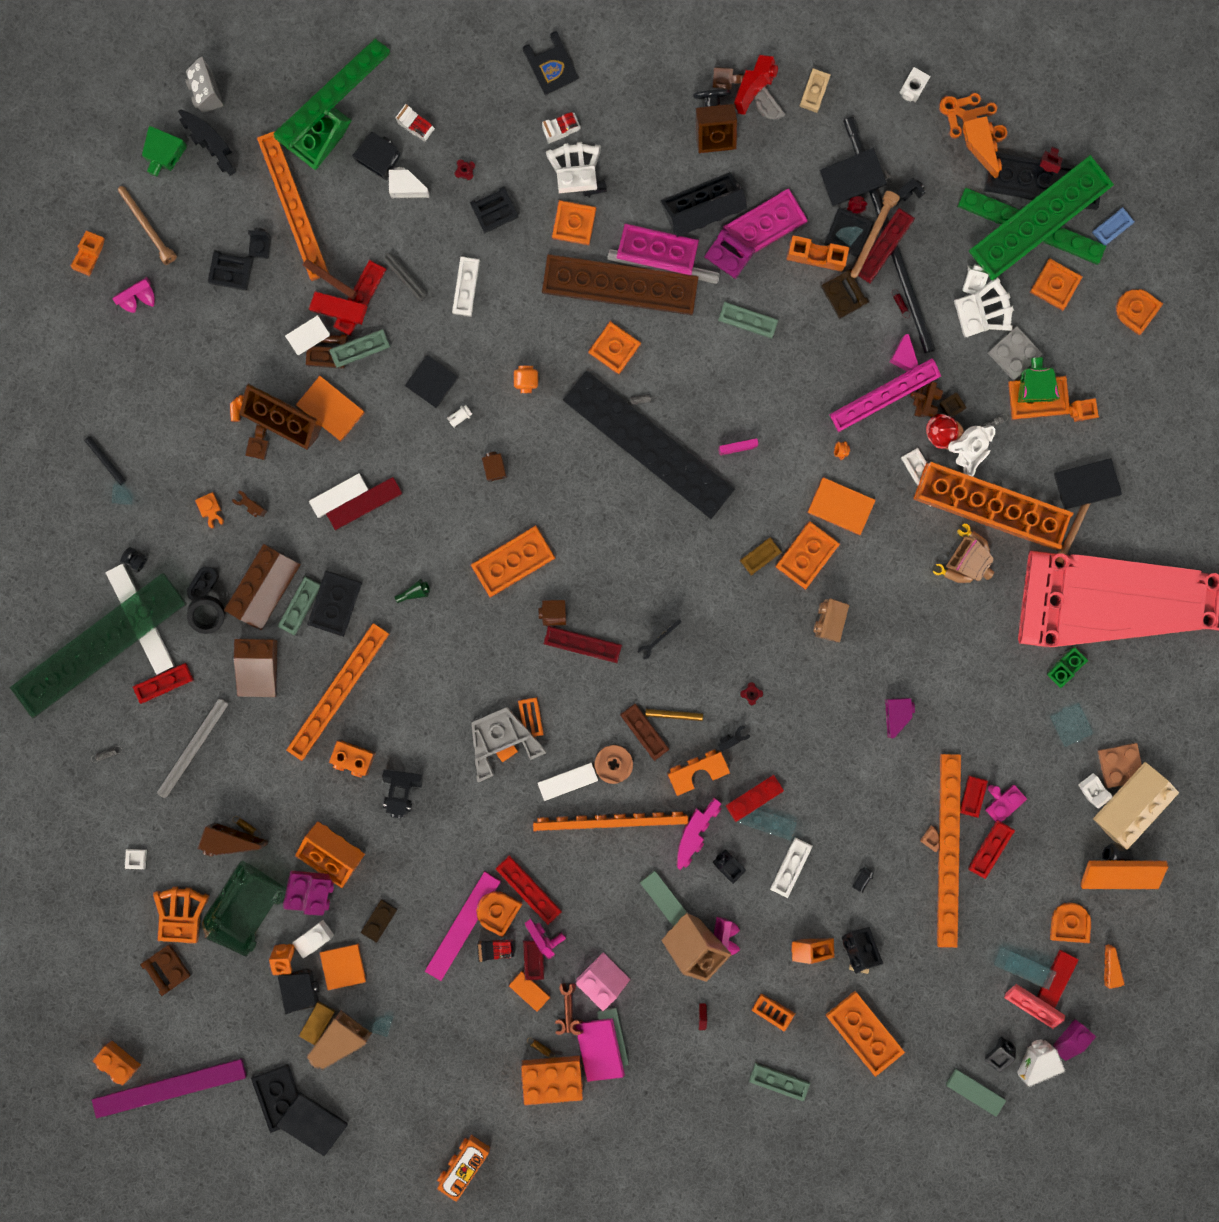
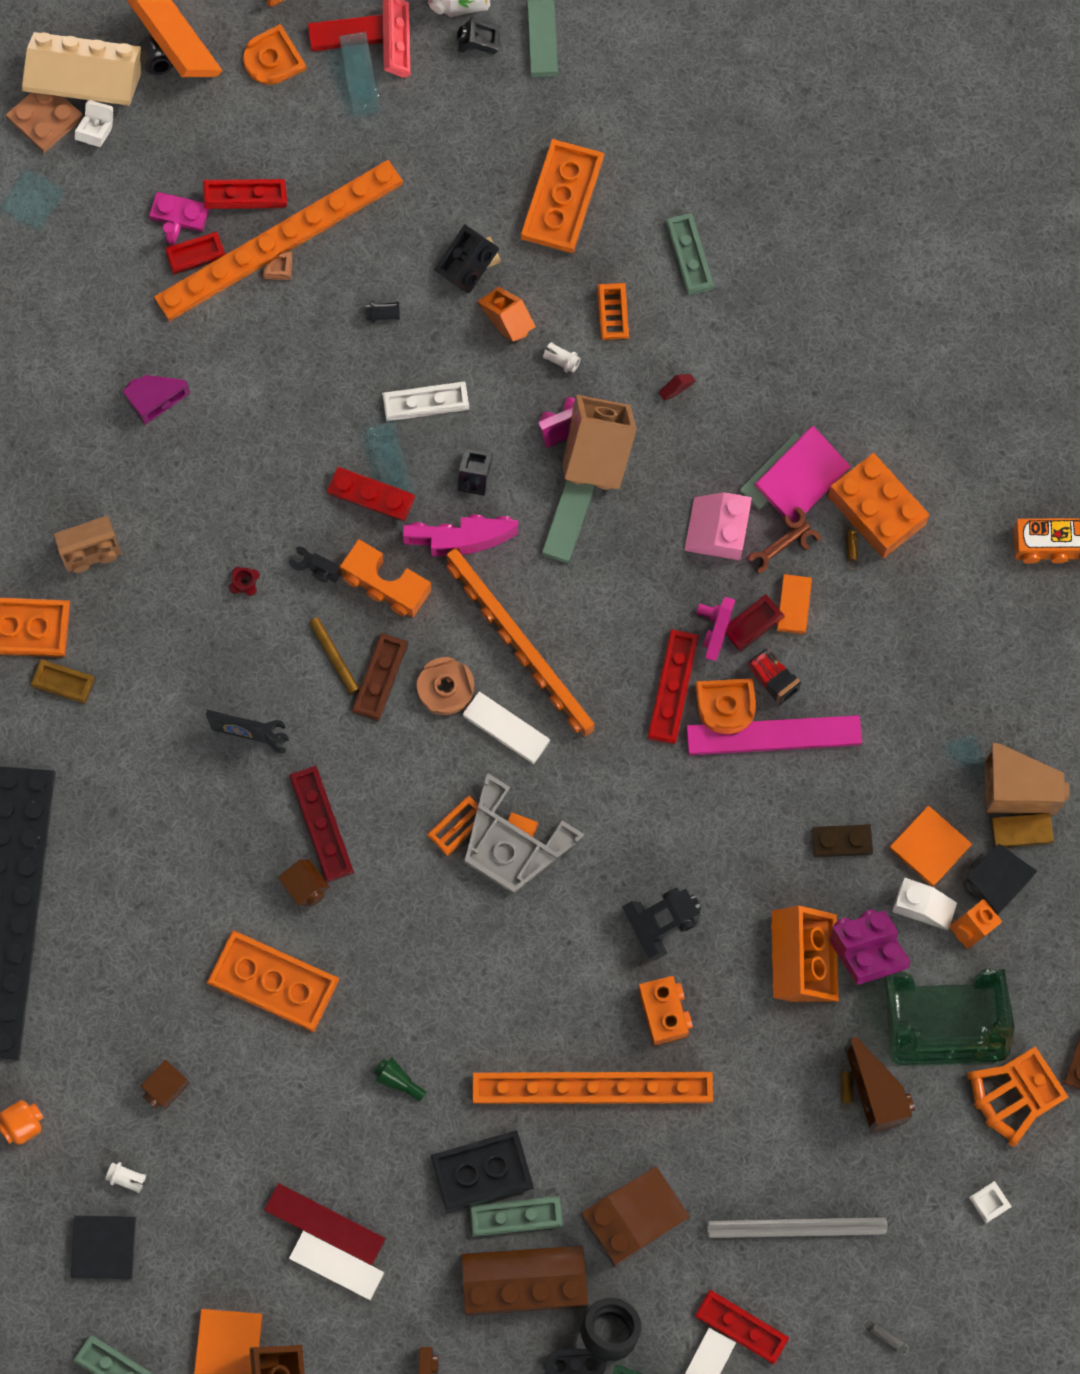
camera: 125 degrees left, 15 degrees down
(762, 964) = (563, 358): none -> white pin

